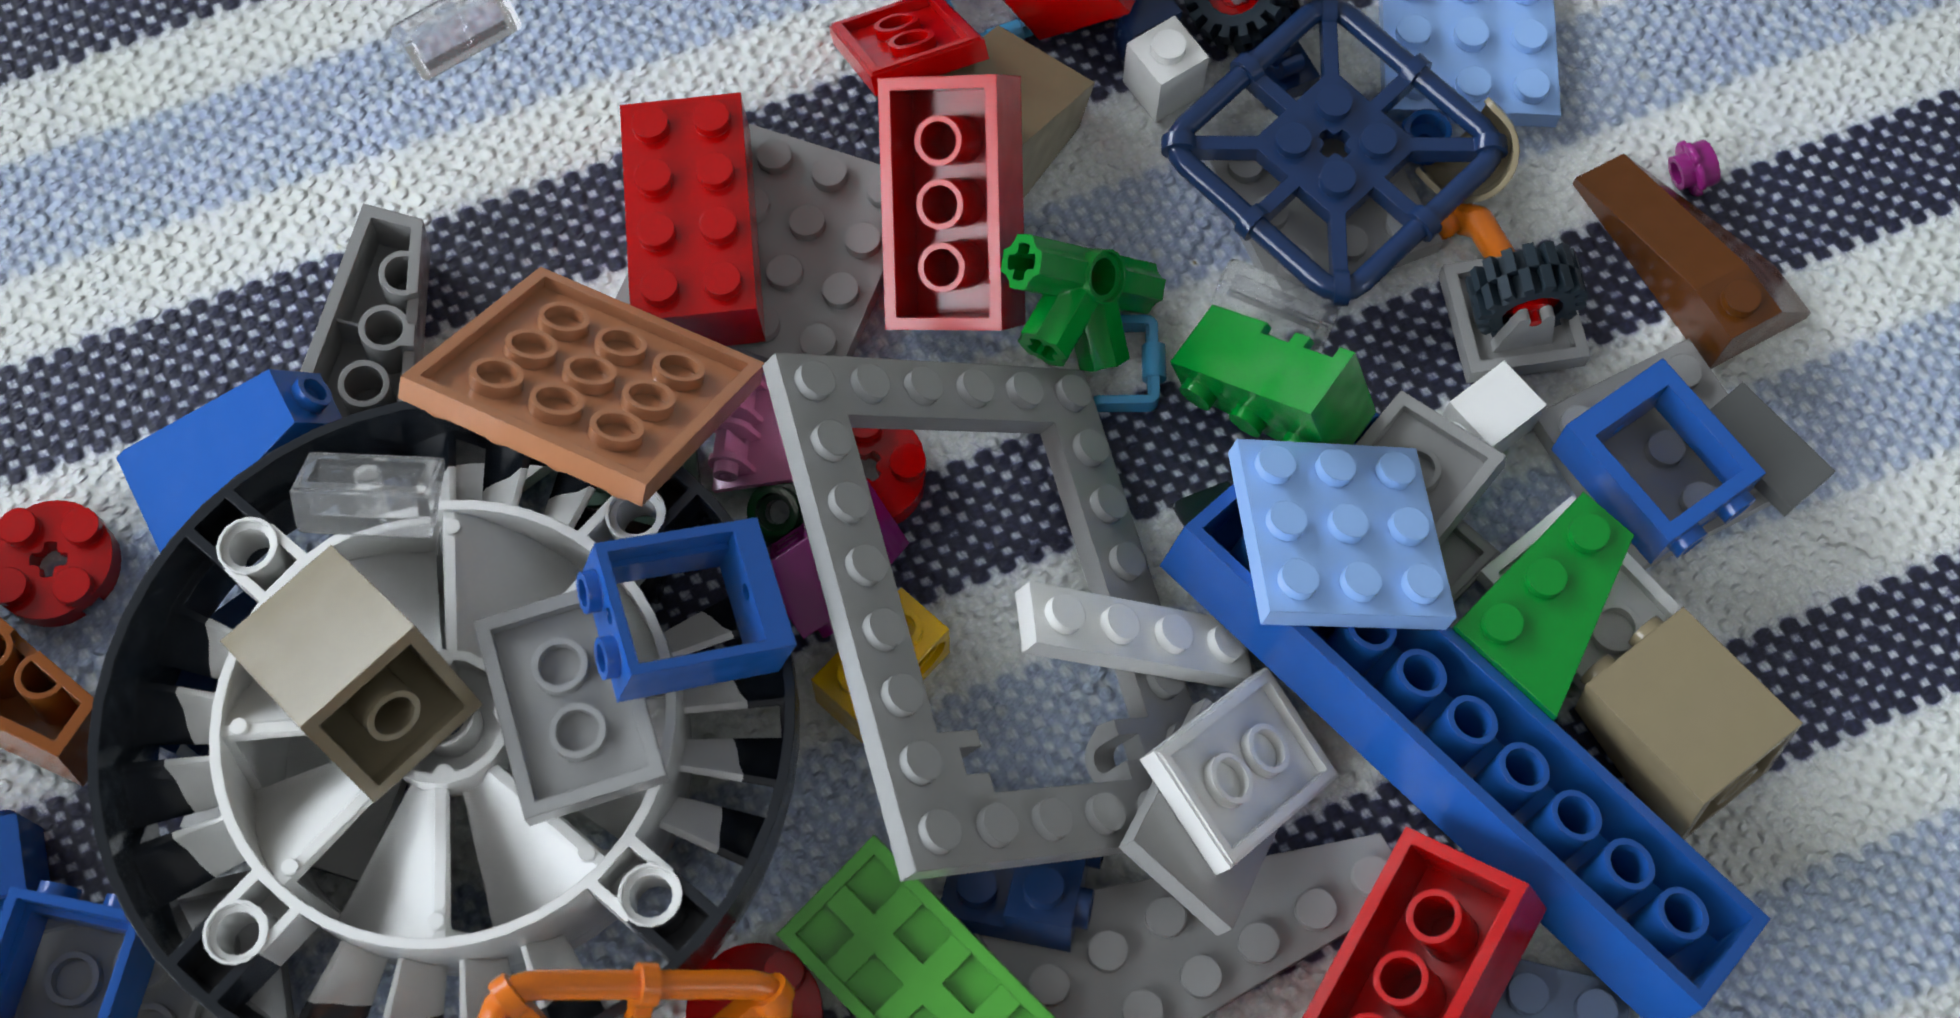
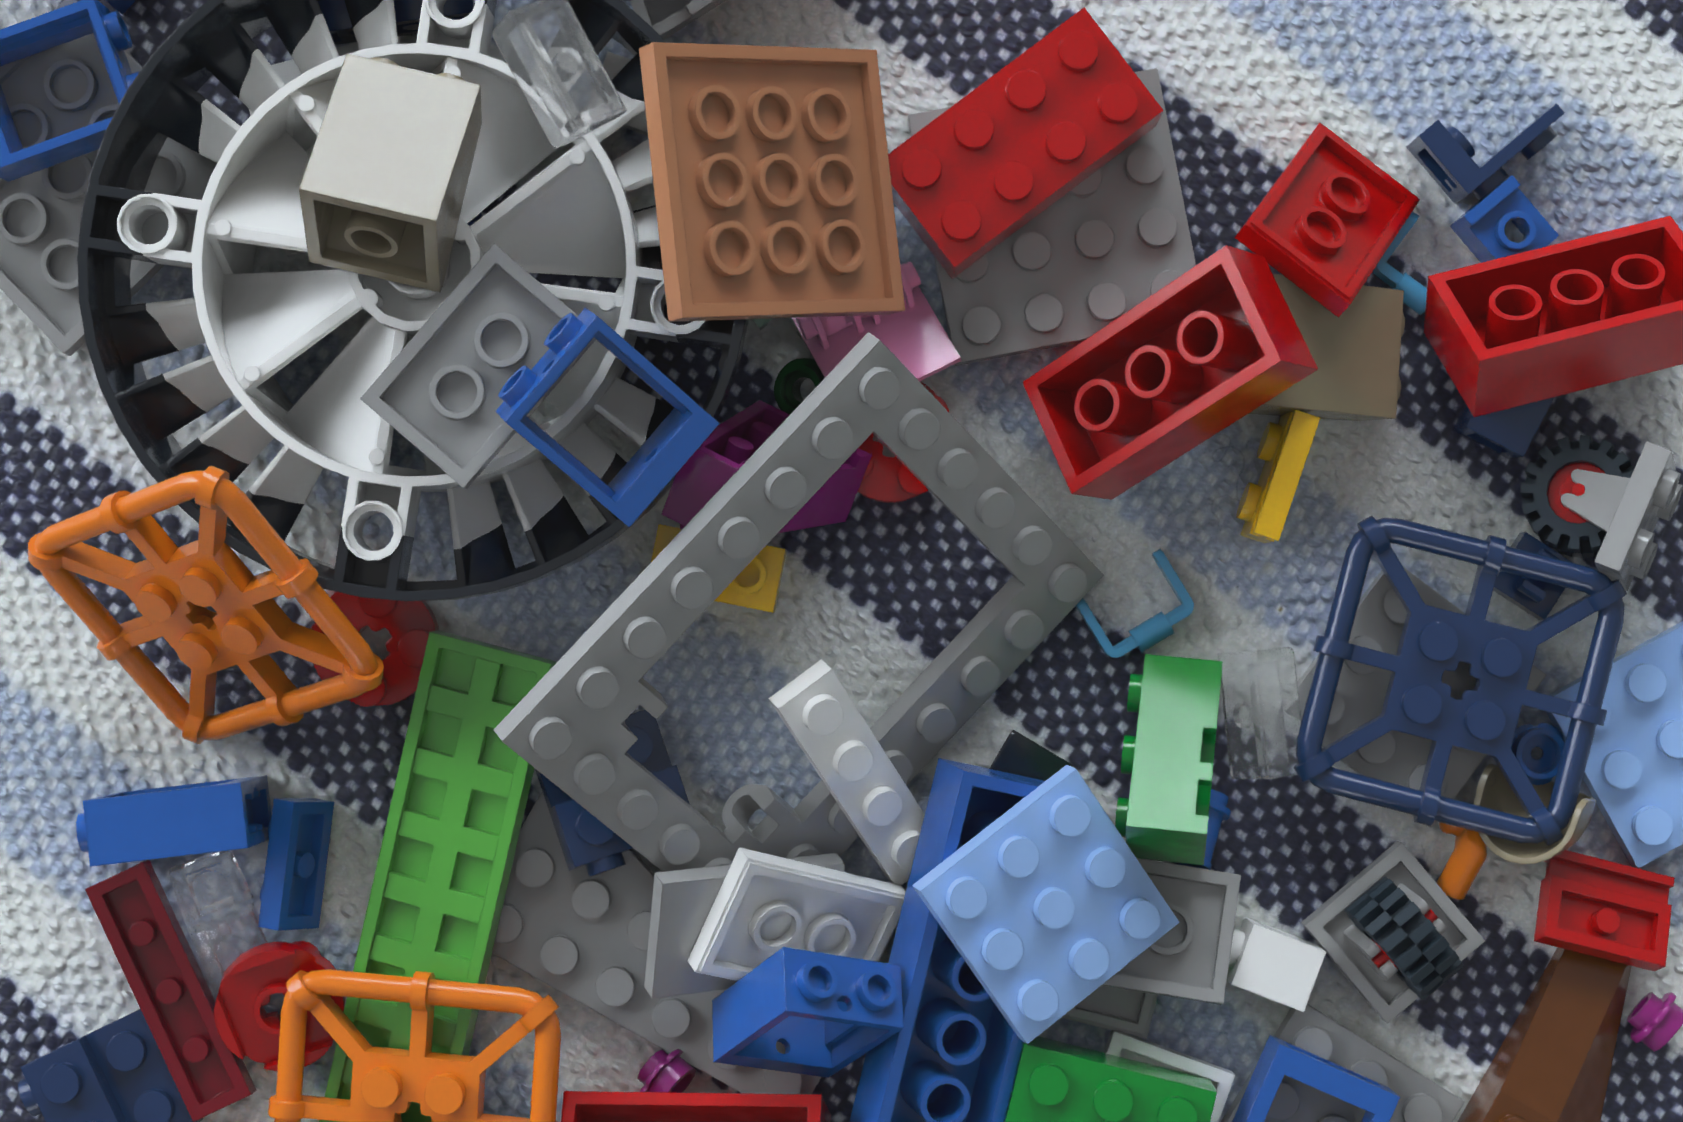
camera: 55 degrees right, 20 degrees up
(1079, 299) = (1152, 538): green piece -> none
(1087, 191) = (1285, 452): none -> yellow plate
(1165, 68) = (1458, 472): white brick -> none
(1304, 978) = (666, 1073): none -> magenta plate
(1345, 746) = (812, 1003): none -> blue window
(1583, 152) = (1605, 910): none -> red plate

